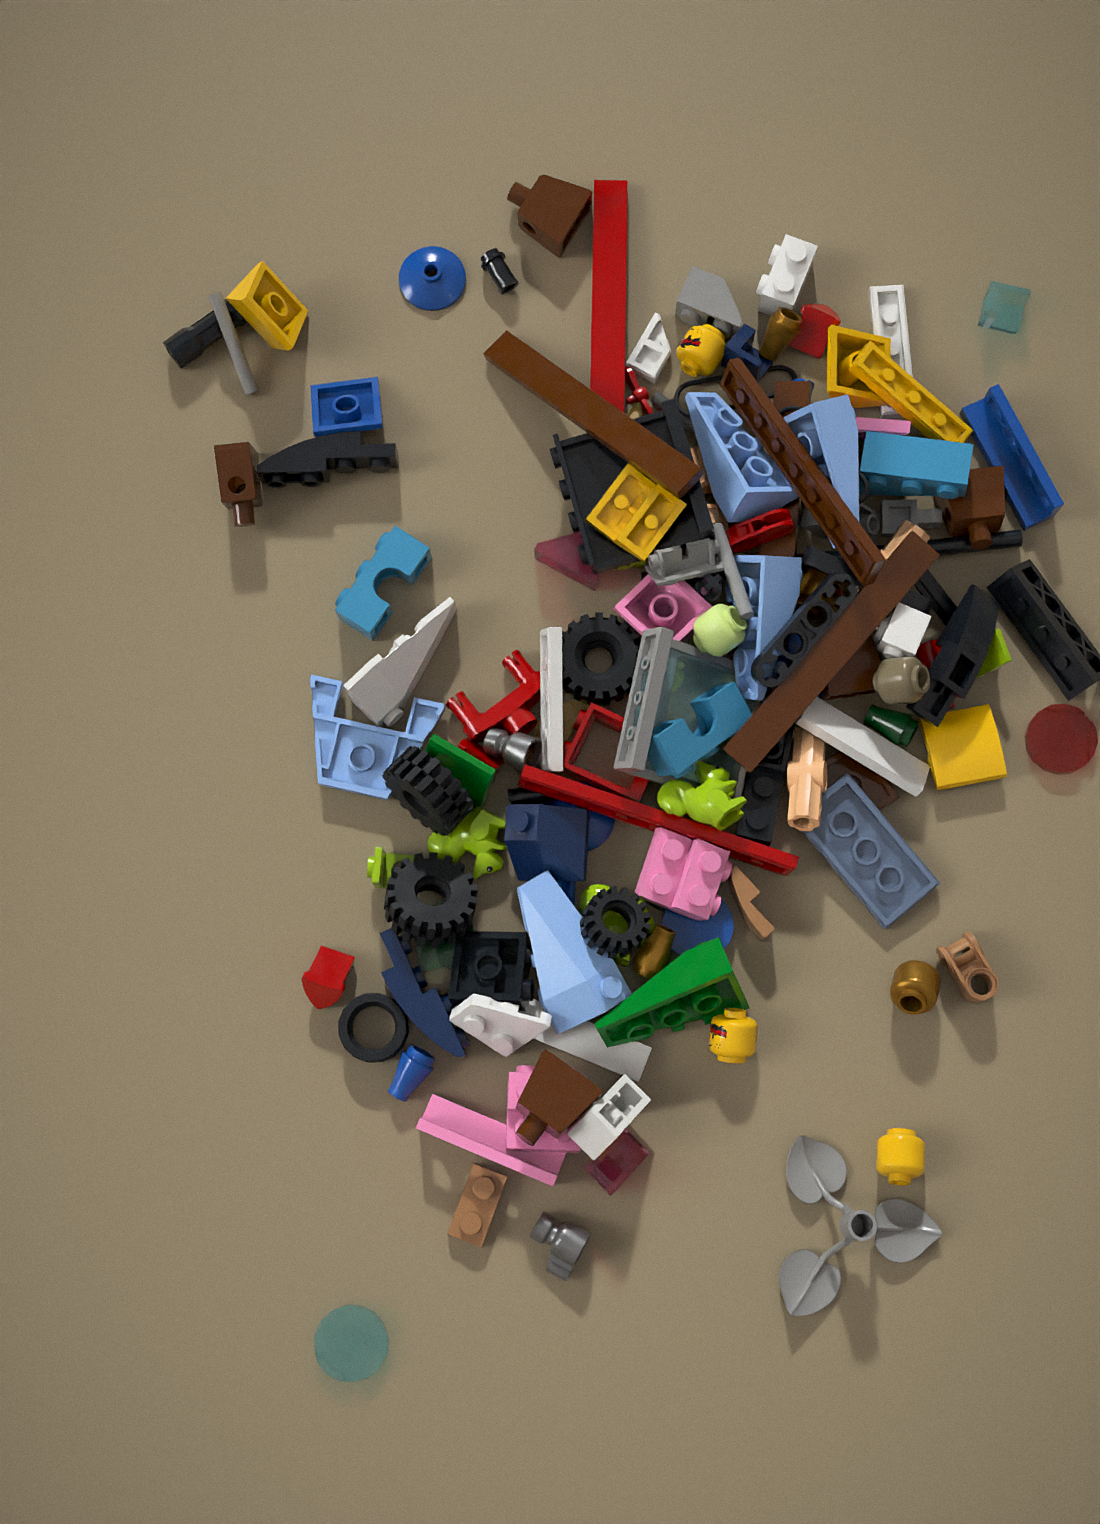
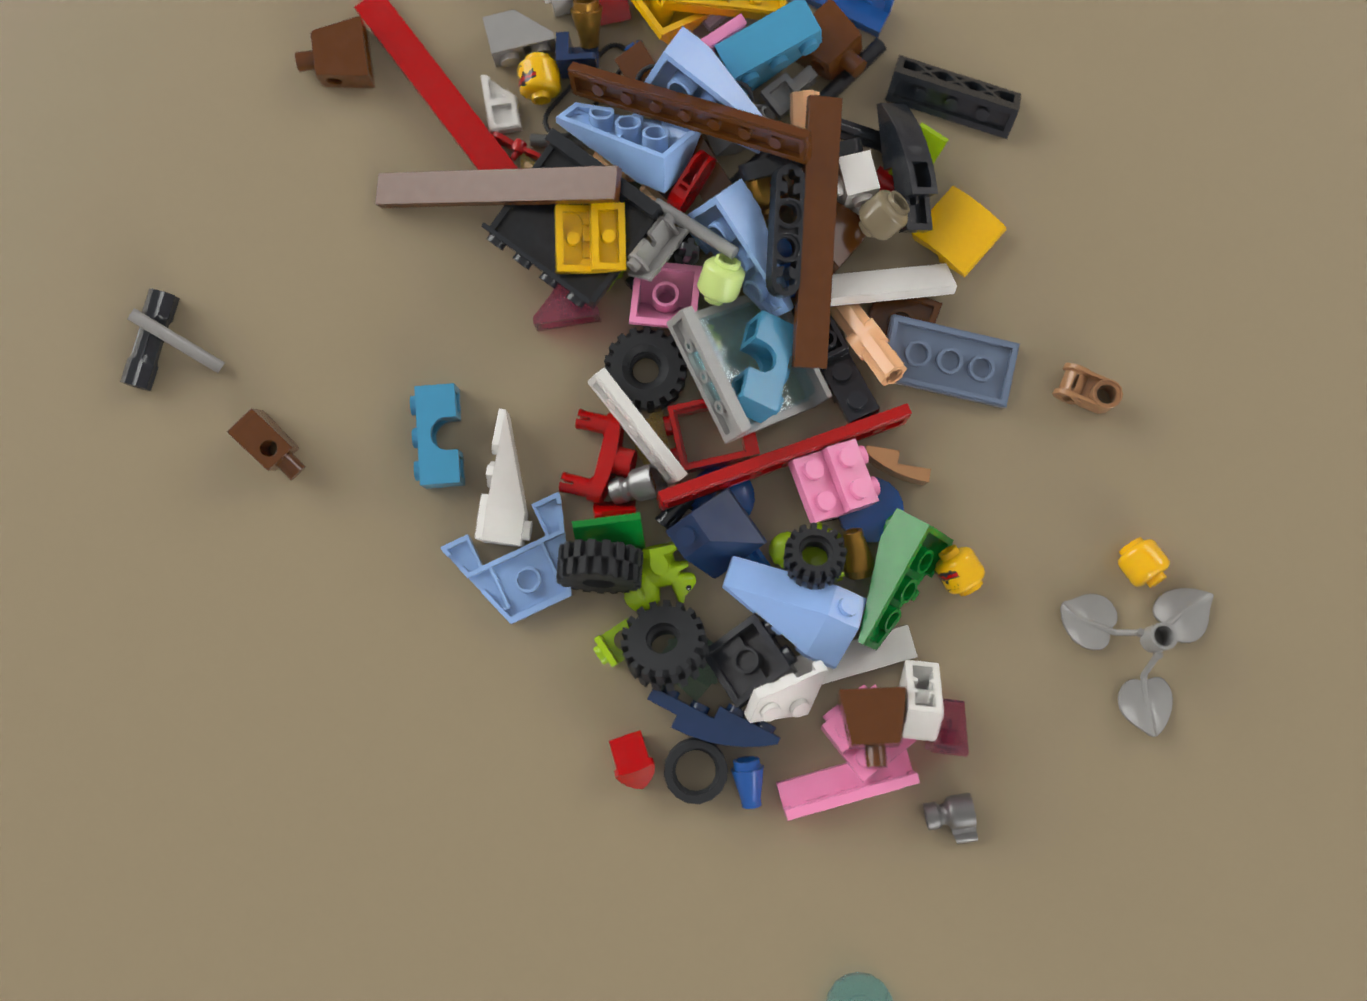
camera: 40 degrees left, 5 degrees up
(269, 307) = (182, 292): yellow slope -> none
(313, 458) = (310, 382): black slope -> none
(346, 406) = (303, 324): blue slope -> none
(437, 291) = (299, 185): blue dish -> none
(477, 1205) = (872, 837): medium nougat plate -> none
(499, 271) = (328, 128): black pin -> none
(706, 803) = (812, 414): lime animal -> none
(892, 724) = (897, 253): dark green cone -> none
(915, 987) = (1061, 433): pearl gold head -> none
(1061, 739) = (1022, 171): clear red tile -> none

